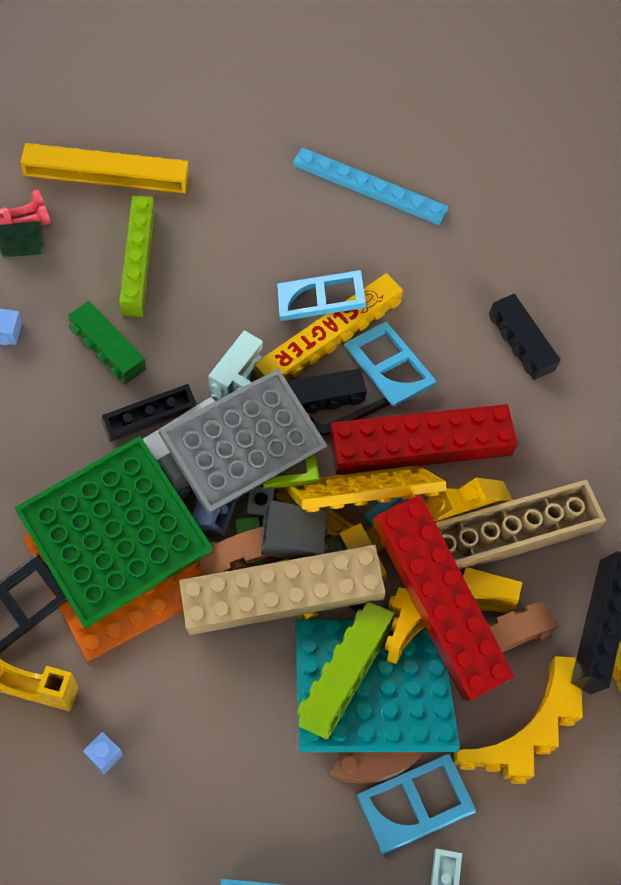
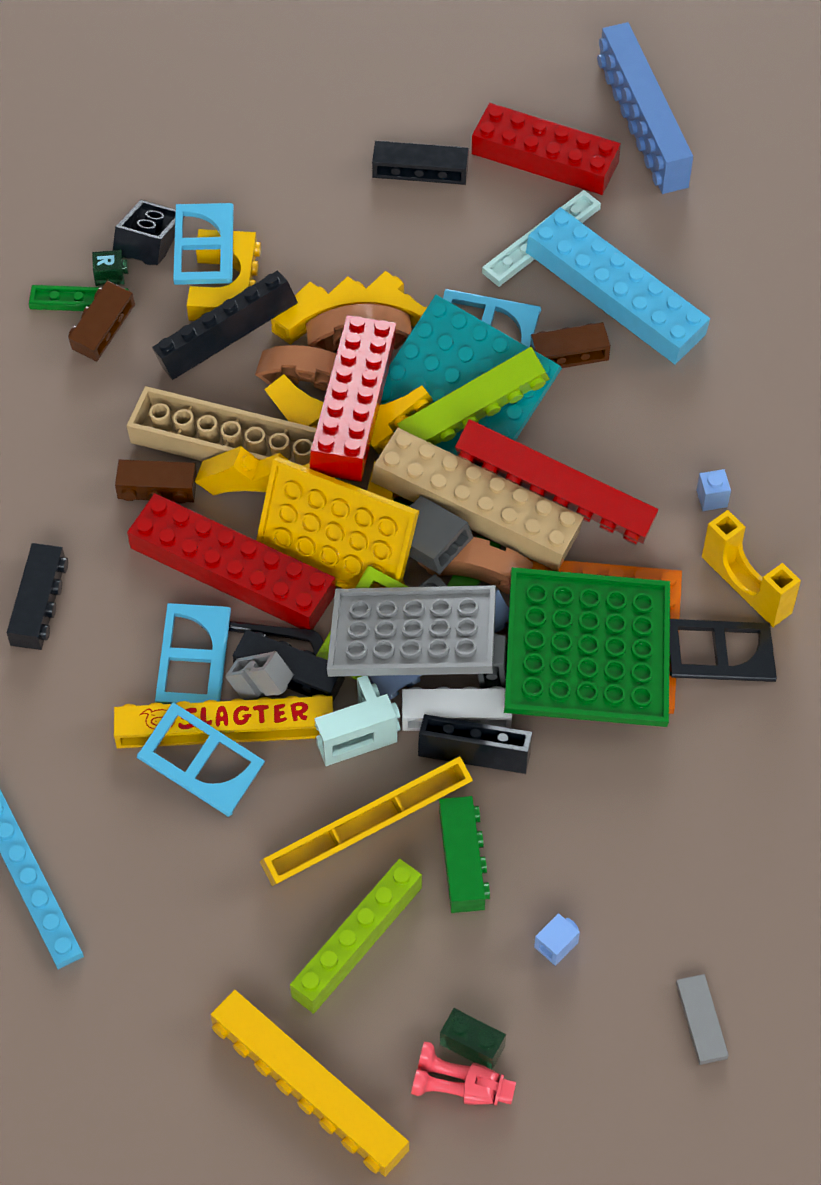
camera: 135 degrees left, 5 degrees down
(181, 321) = (365, 821): none -> yellow brick
(228, 646) = (557, 482): none -> red brick
(324, 822) = (573, 345): none -> reddish brown brick
(327, 360) = (259, 675): none -> light grey brick
(509, 700) = (326, 328): none -> nougat brick
(531, 466) = (168, 479): none -> reddish brown brick

